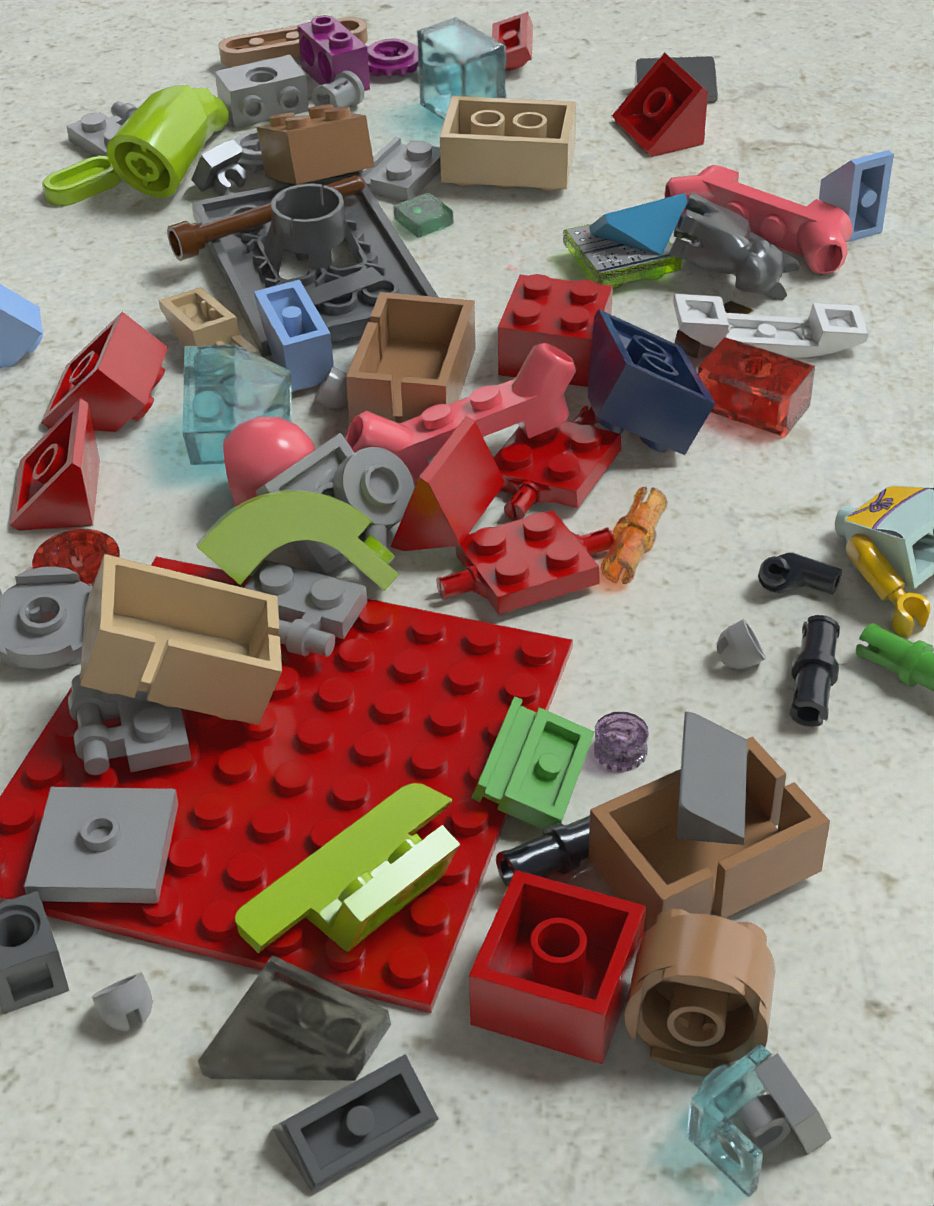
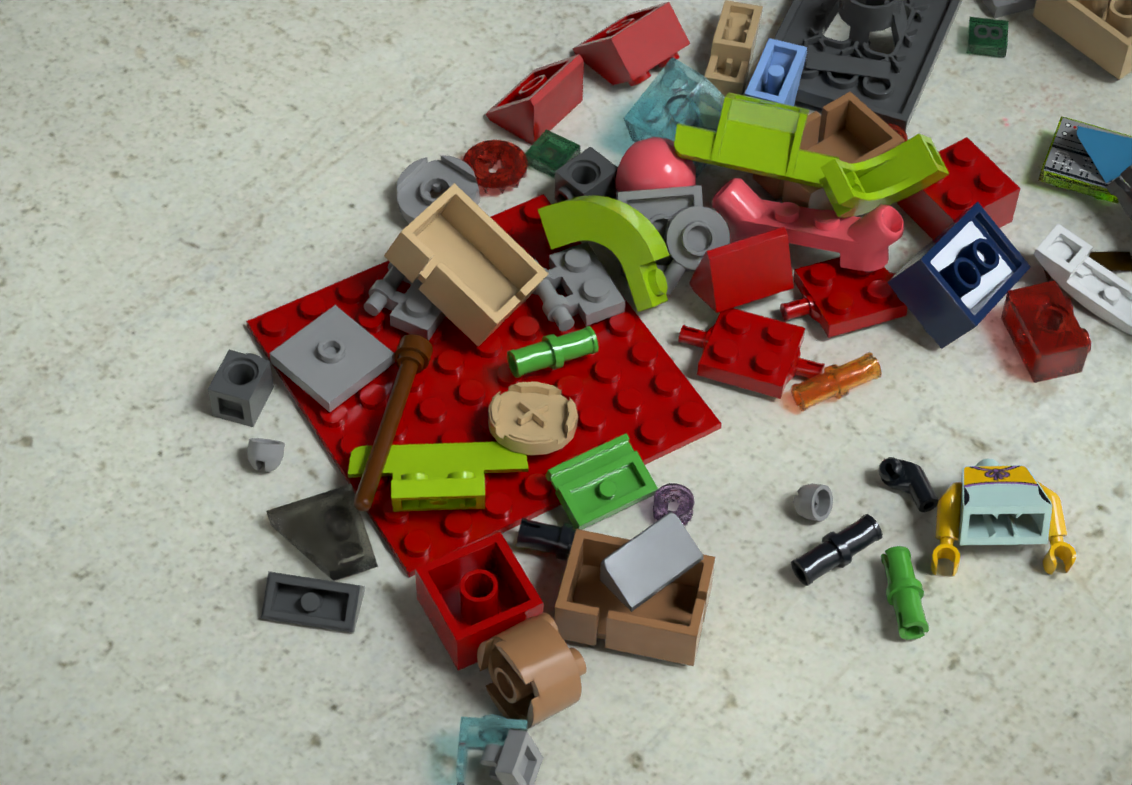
camera: 40 degrees right, 10 degrees up
(126, 517) = (551, 153): none -> clear green tile
(191, 511) = (586, 175): none -> dark grey brick
(201, 780) = (411, 357): none -> reddish brown piece
(346, 677) = (552, 351): none -> bright green pin
(353, 365) = (755, 139): none -> lime plate
(398, 752) = (532, 418): none -> tan tile
(504, 329) = (882, 179): none -> lime arch

